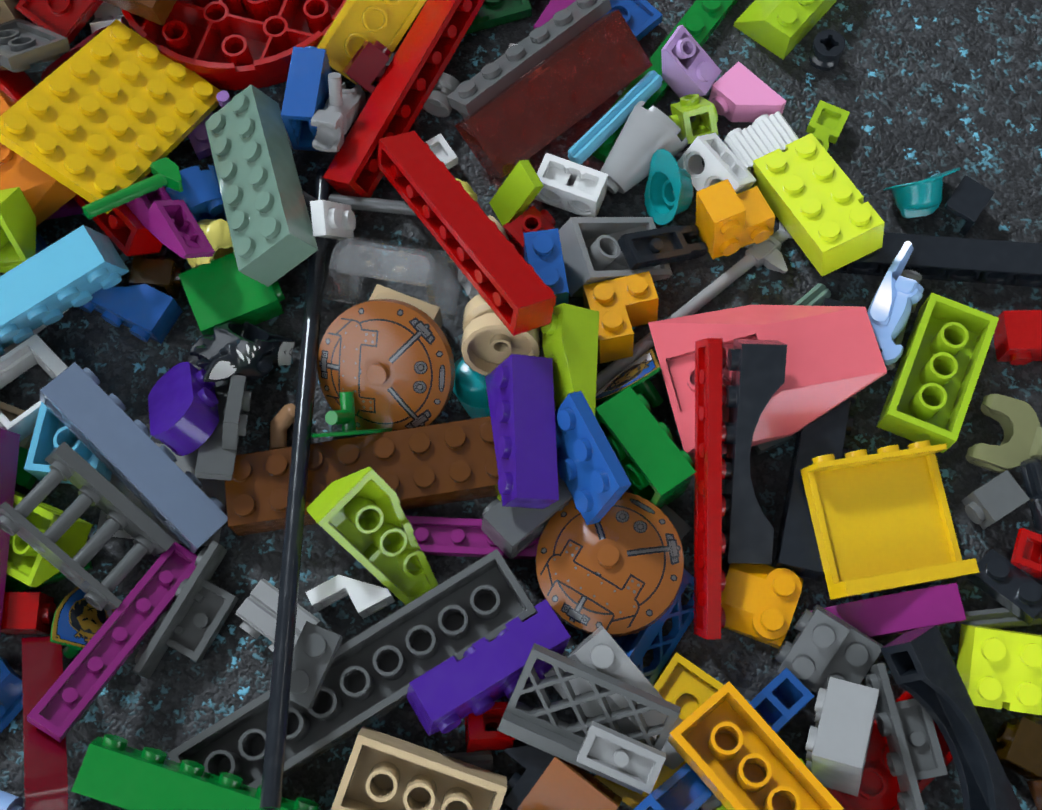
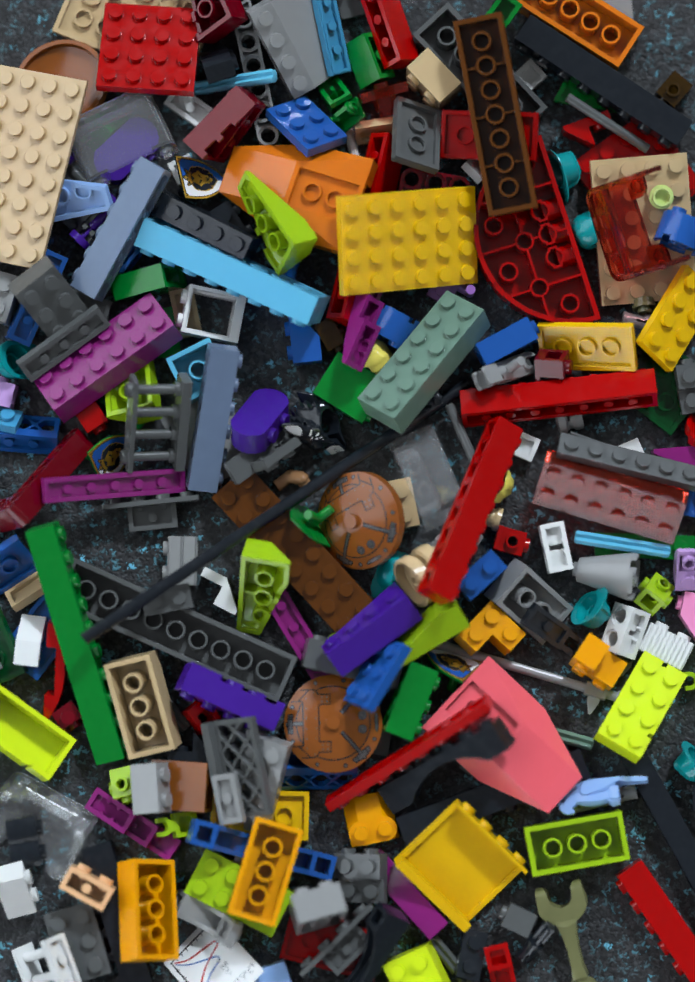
camera: 55 degrees right, 15 degrees up
(164, 173) = (388, 308): green piece -> none
(332, 220) = (430, 423): white plate -> none
(516, 192) = (526, 518): lime tile -> none

